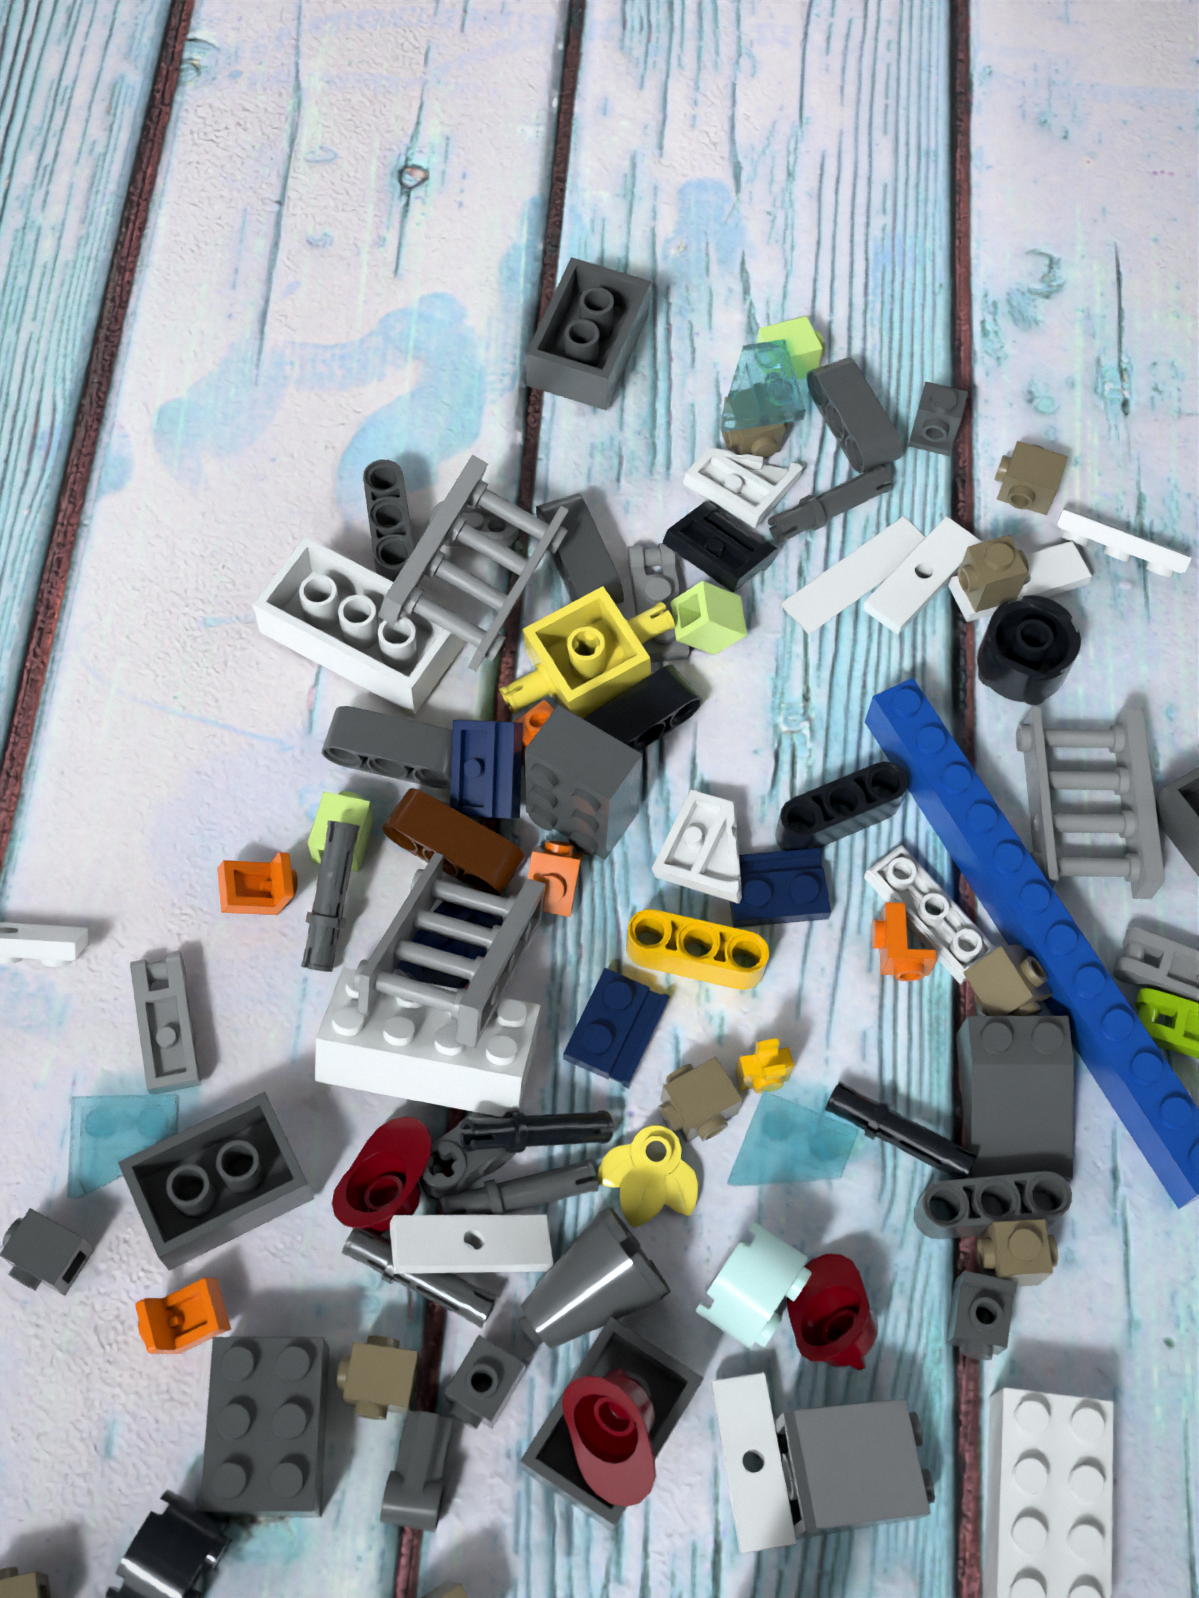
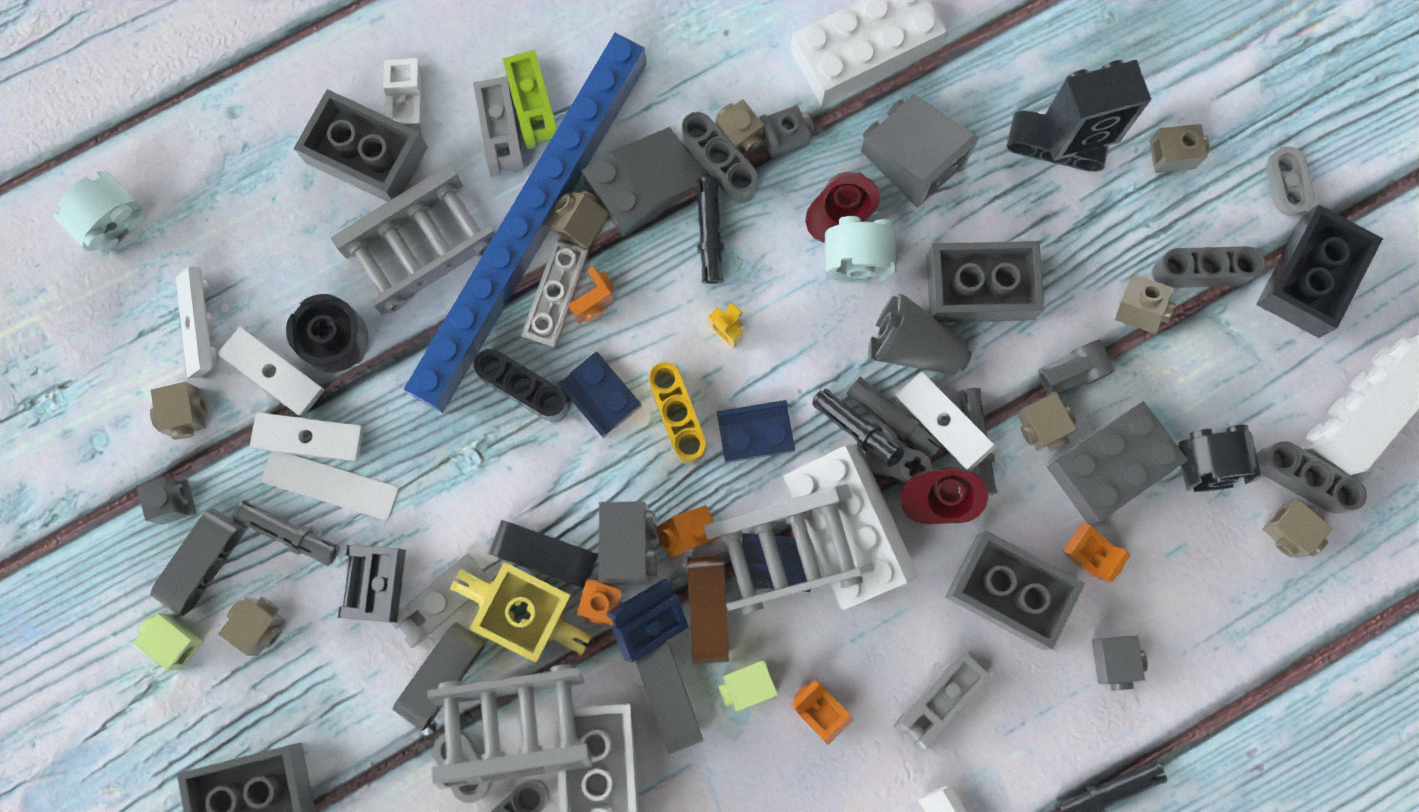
camera: 120 degrees left, 15 degrees up
(112, 1129) = (1026, 674): clear light blue wing -> none
(330, 895) = (813, 649): dark grey pin -> none
(483, 1384) = (1009, 365): dark grey brick -> none
(611, 1434) = (1002, 264): dark red piece -> none
(648, 1183) = (835, 351): light yellow plate -> none
(699, 1100) = (770, 352): dark tan brick -> none
(703, 848) = (606, 451): white wing -> none
(708, 618) = (438, 552): yellowish green brick -> none
(741, 483) = (307, 604): white wing -> none
(761, 1497) = (959, 189): white tile -> none
(763, 389) = (223, 631): clear light blue wing -> none
(791, 1145) = (759, 287): clear light blue wing -> none
(993, 573) = (285, 383): dark tan brick -> none

